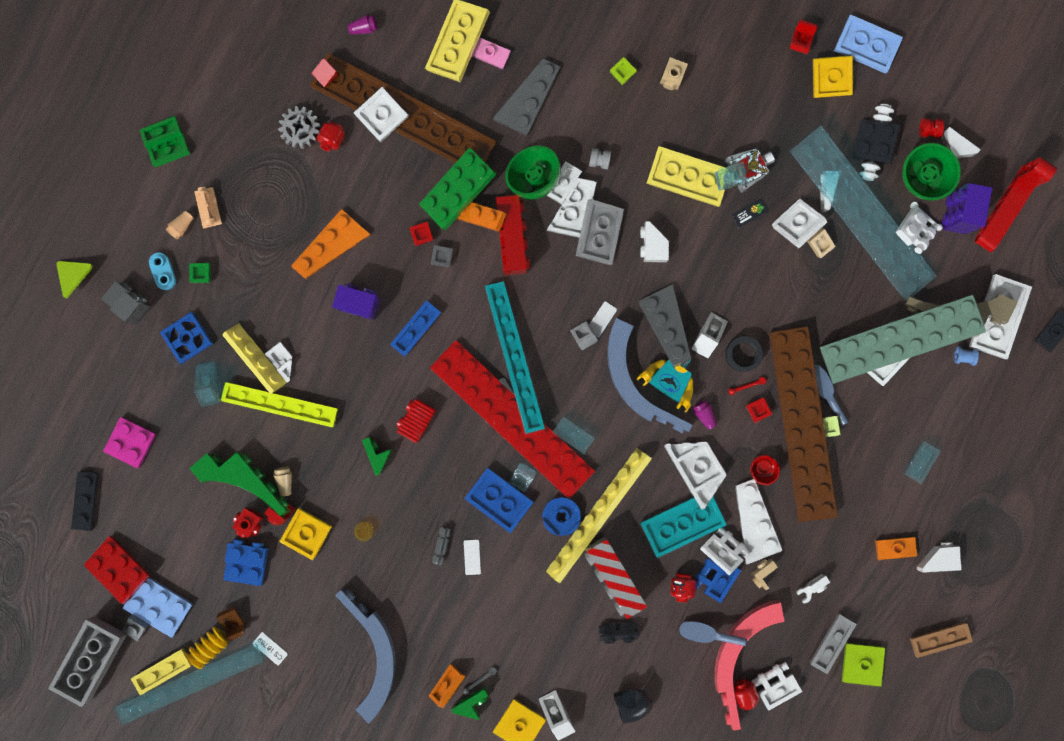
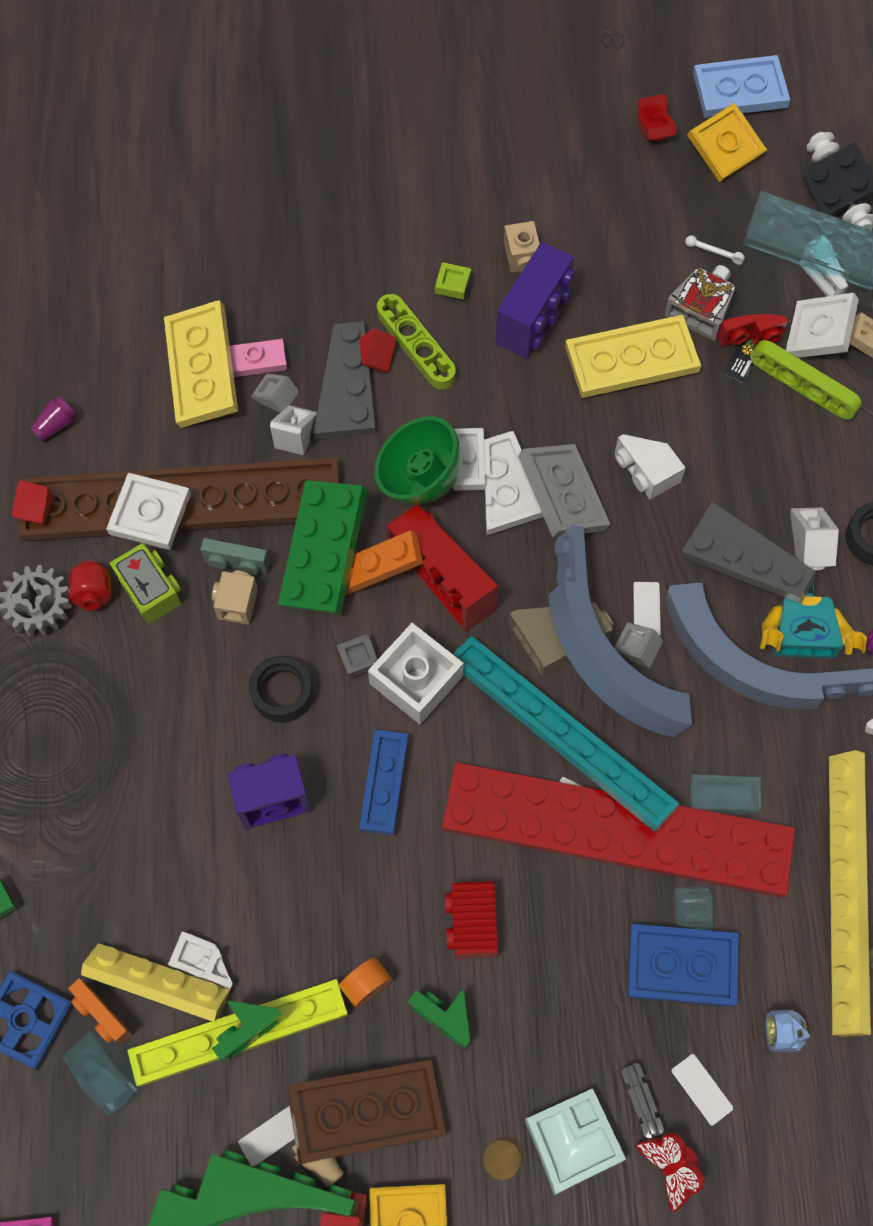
camera: 30 degrees left, 20 degrees down
(220, 350) = (108, 1025): none -> orange plate
(270, 458) = (268, 1137): none -> white sticker
(287, 406) = (255, 1022): none -> green slope
(314, 475) = (365, 1111): none -> reddish brown plate
(333, 241) = (177, 737): orange wing -> none
(349, 418) = (365, 982): none -> orange piece
(359, 152) = (146, 583): none -> brick
(394, 236) = (272, 666): none -> black tyre
(399, 187) = (235, 597): none -> tan brick
(399, 544) = (574, 1141): none -> light aqua plate
(405, 160) = (245, 558): none -> sand green plate
(421, 234) = (307, 642): red plate -> none
(438, 582) = (677, 1164): none -> red animal
(462, 284) = (415, 673): none -> white brick
(485, 108) = (293, 429): none -> white slope
(488, 80) = (275, 392): none -> light grey slope
(525, 557) = (785, 1031): none -> light blue rock
(548, 307) = (539, 638): none -> dark tan slope
(551, 329) = (594, 656): none -> sand blue arch
(555, 90) = (377, 350): none -> red slope
(561, 527) = (811, 919): blue plate -> none
(580, 95) = (419, 339): none -> lime beam
(600, 158) = (498, 399): light grey wheel -> none
(656, 114) = (535, 300): none -> dark purple brick
(731, 176) = (693, 312): clear light blue slope -> none
(767, 204) = (755, 326): none -> red slope
(769, 247) = (805, 379): none -> lime beam
(770, 125) = (736, 257): none -> white hinge

